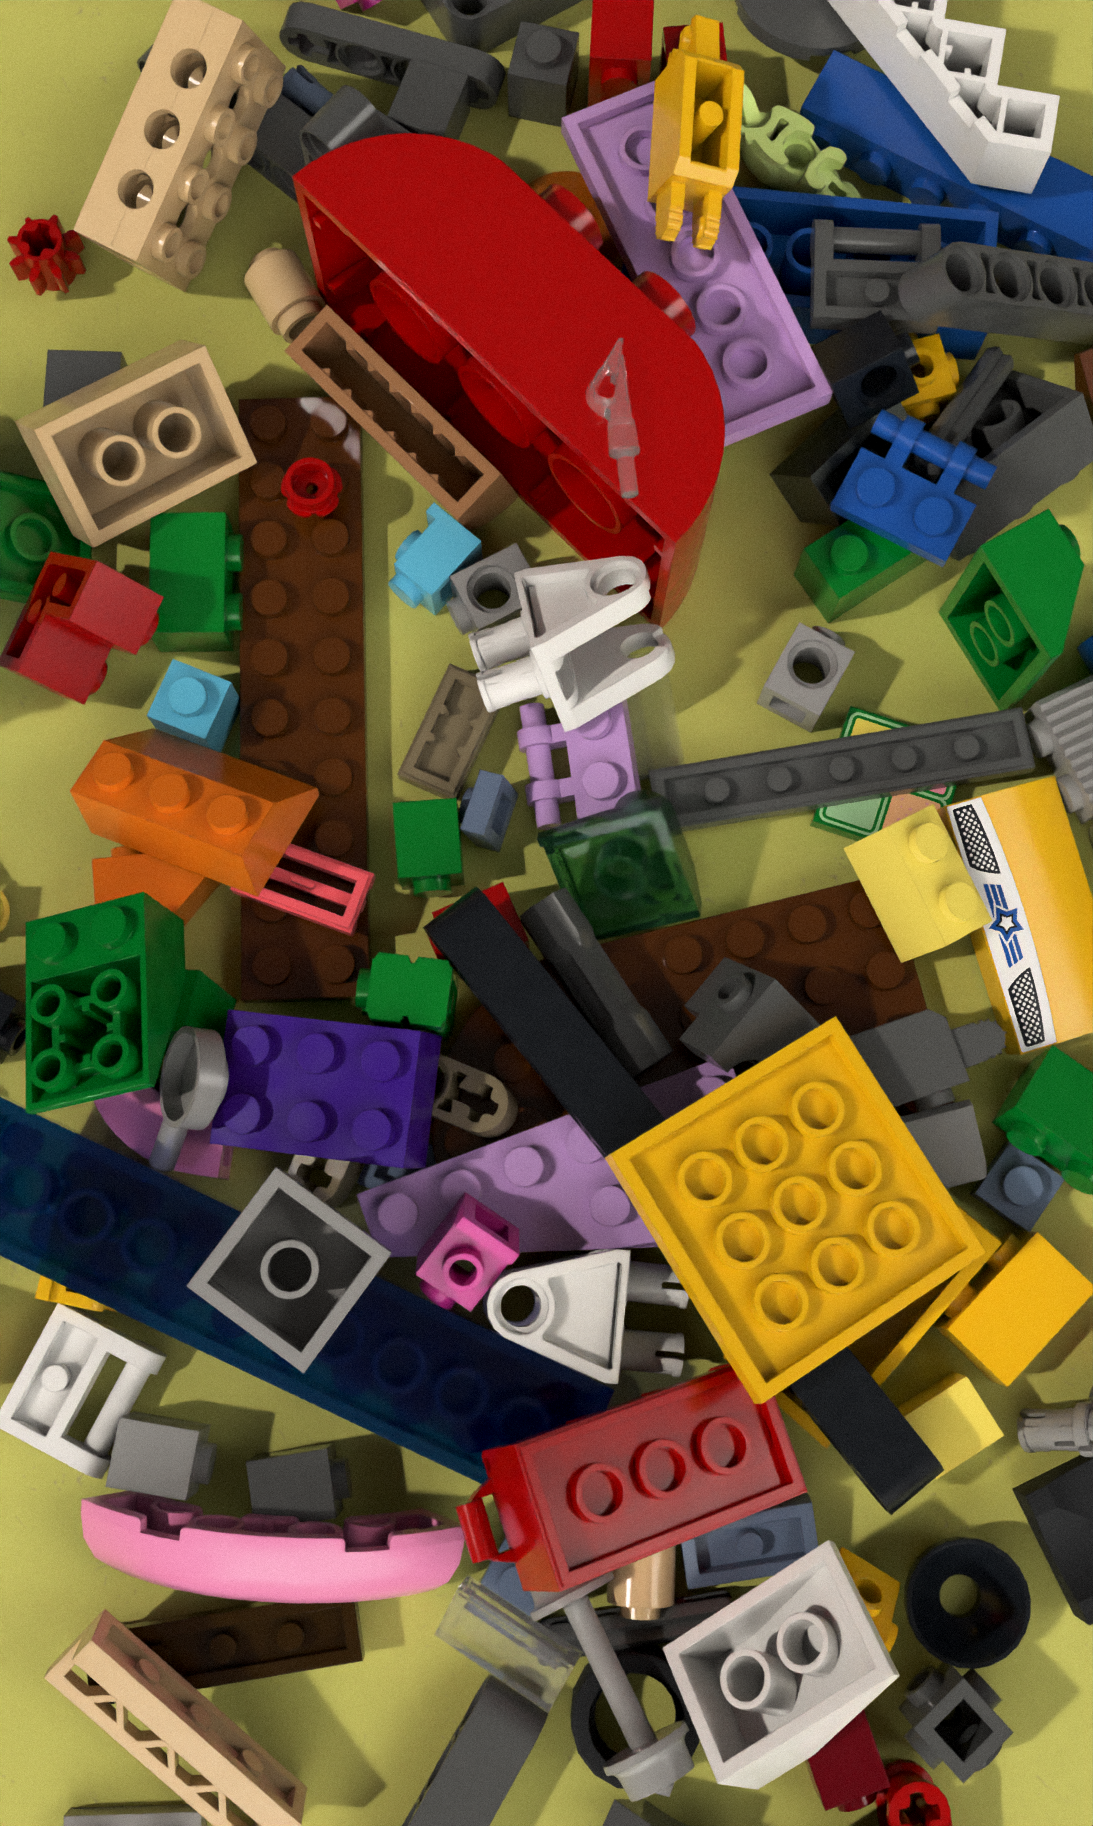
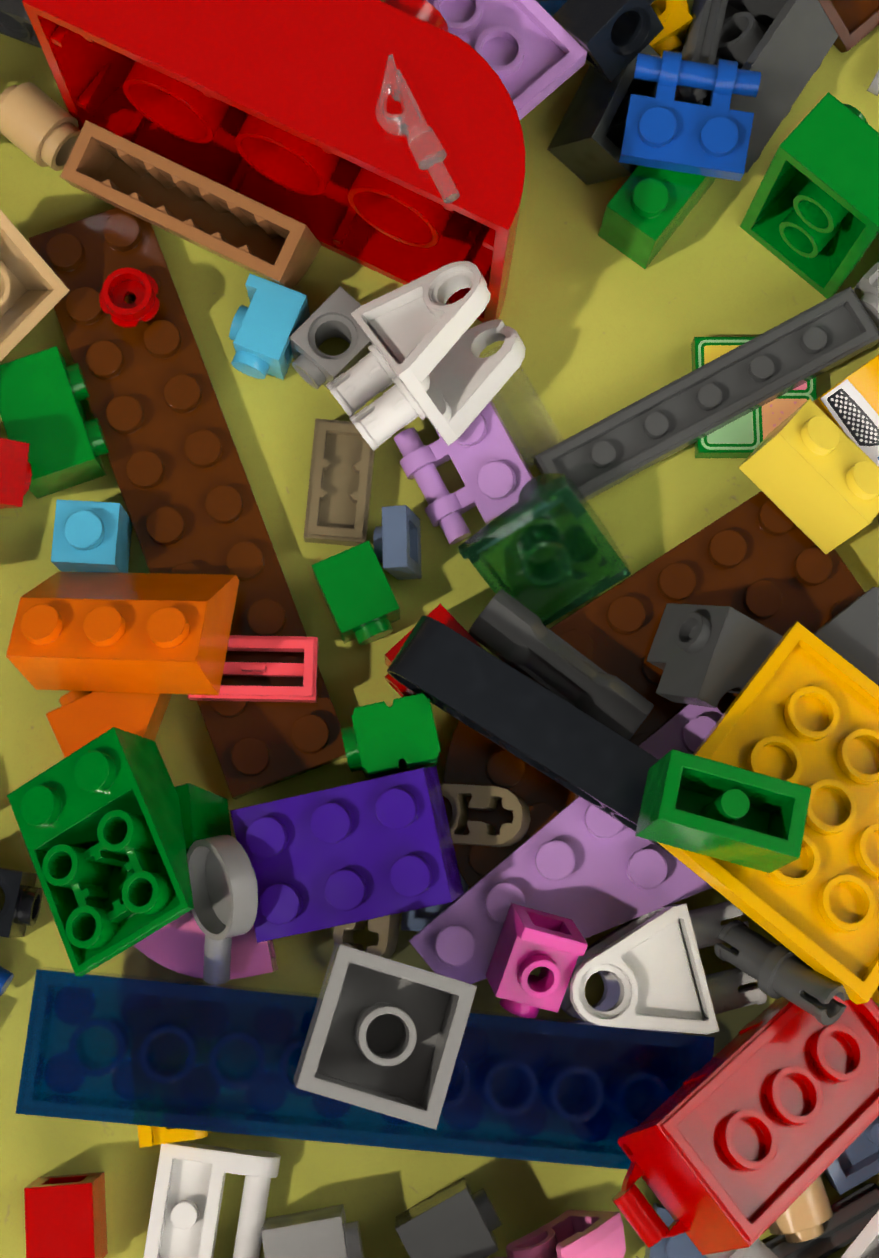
camera: 25 degrees left, 0 degrees up
(682, 1170) = (723, 811): none -> green brick
(695, 1348) = (781, 972): none -> dark grey pin
(793, 698) = (642, 346): light grey brick -> none

